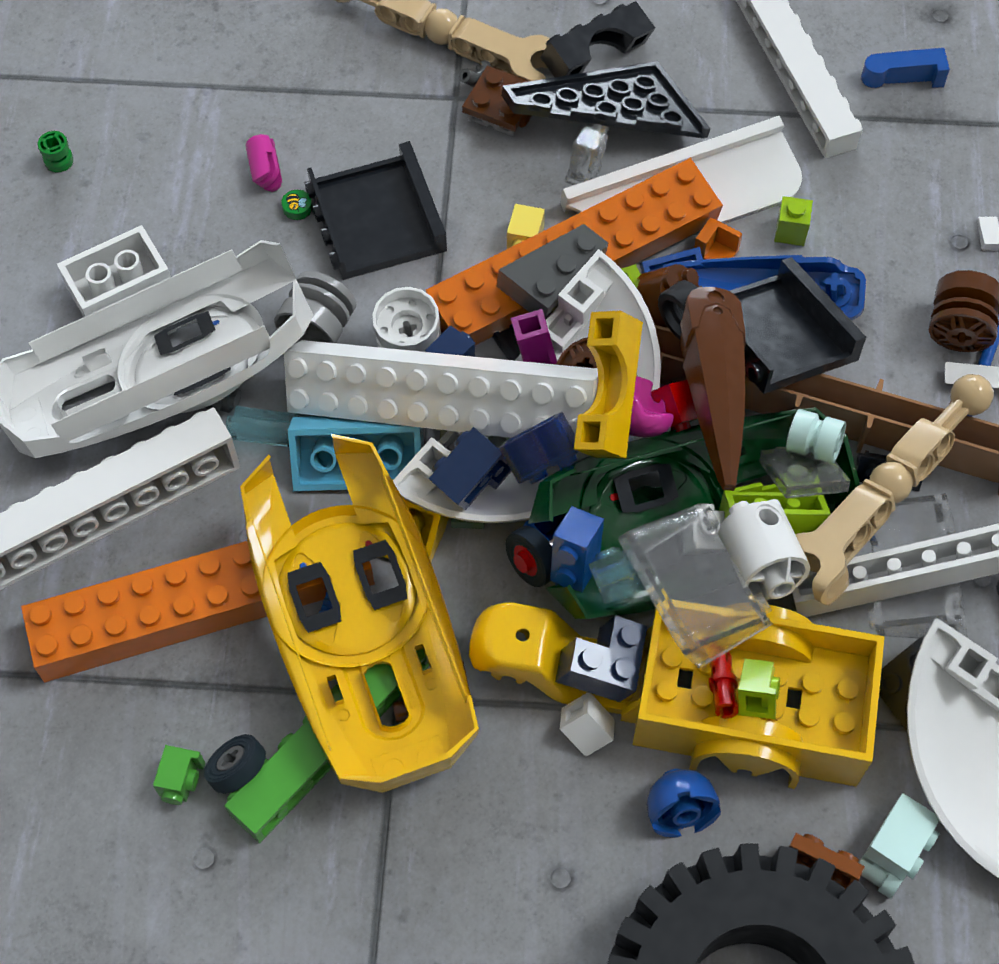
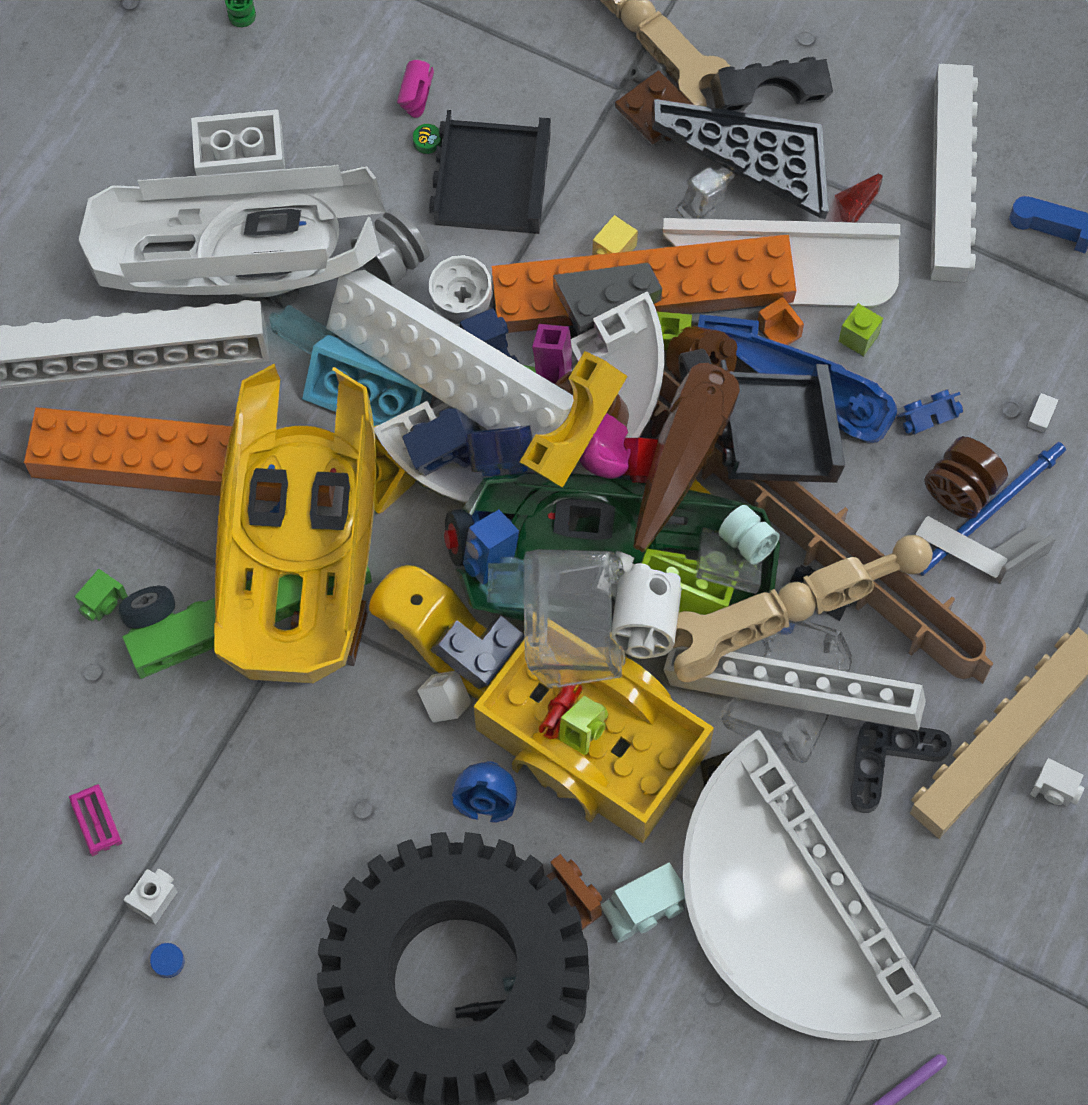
camera: 25 degrees right, 5 degrees up
(723, 111) = (856, 199): none -> clear red slope
(885, 275) = (942, 407): none -> blue hinge

